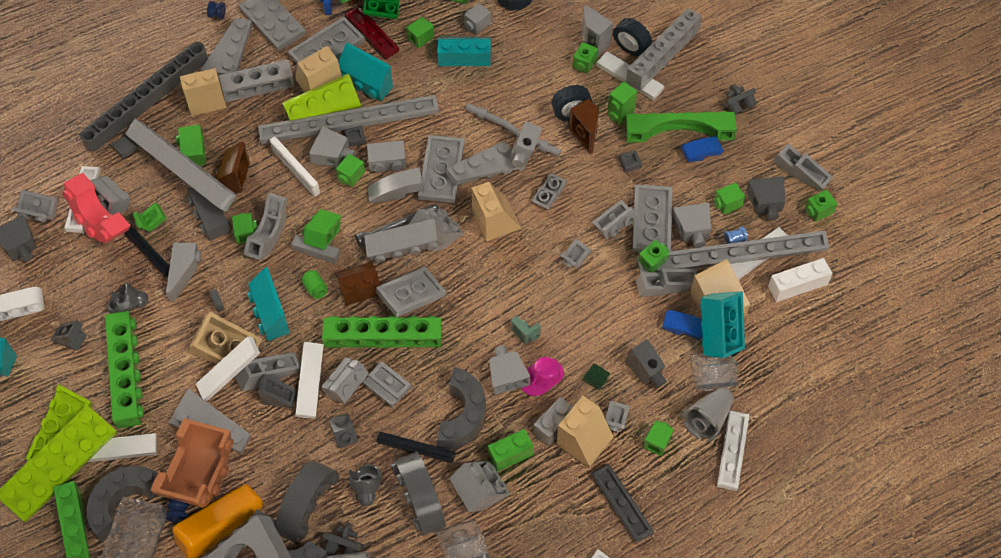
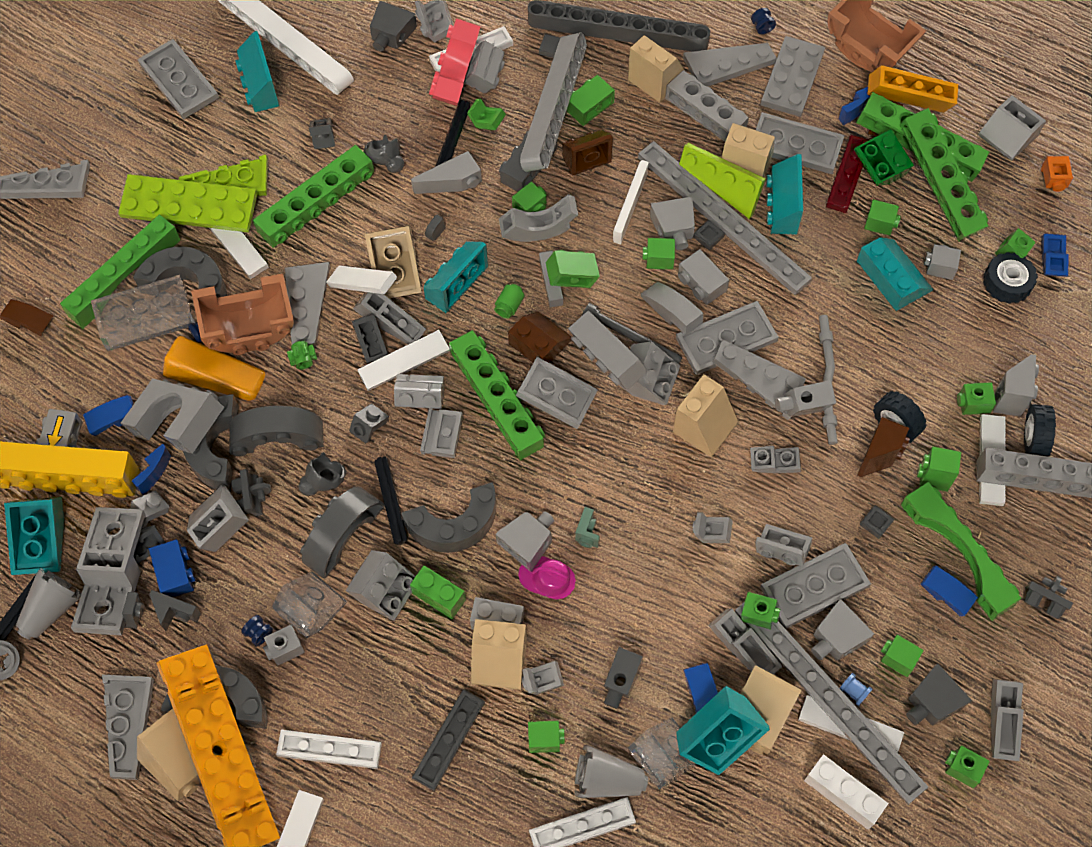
camera: 60 degrees right, 5 degrees up
(255, 446) = (301, 355): none -> bright green gear
(596, 376) = (581, 633): clear green tile -> none

